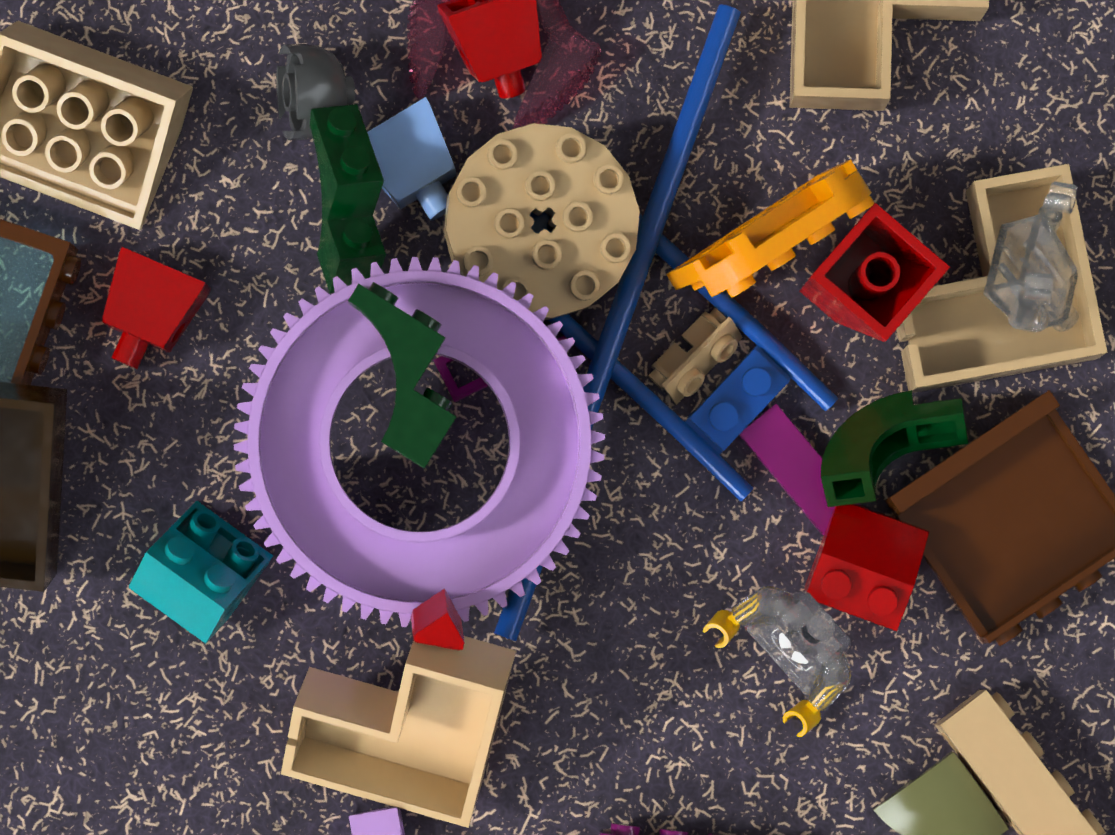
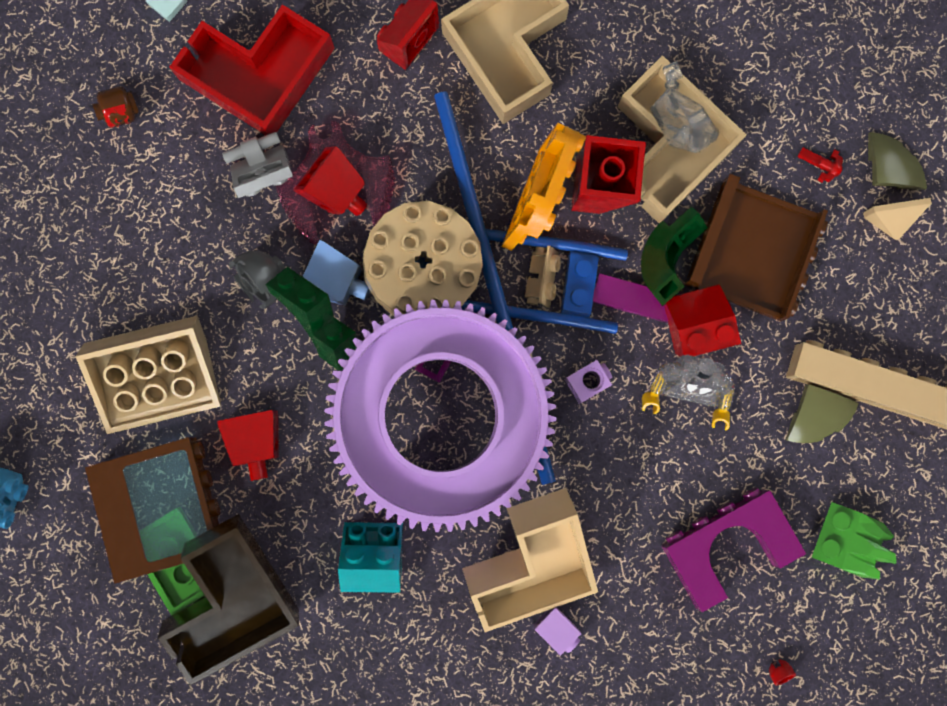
camera: 40 degrees left, 0 degrees up
(412, 341) = (434, 405): dark green arch -> none
(438, 623) = (517, 502): red slope -> none
(635, 542) = (576, 384): none -> lavender brick

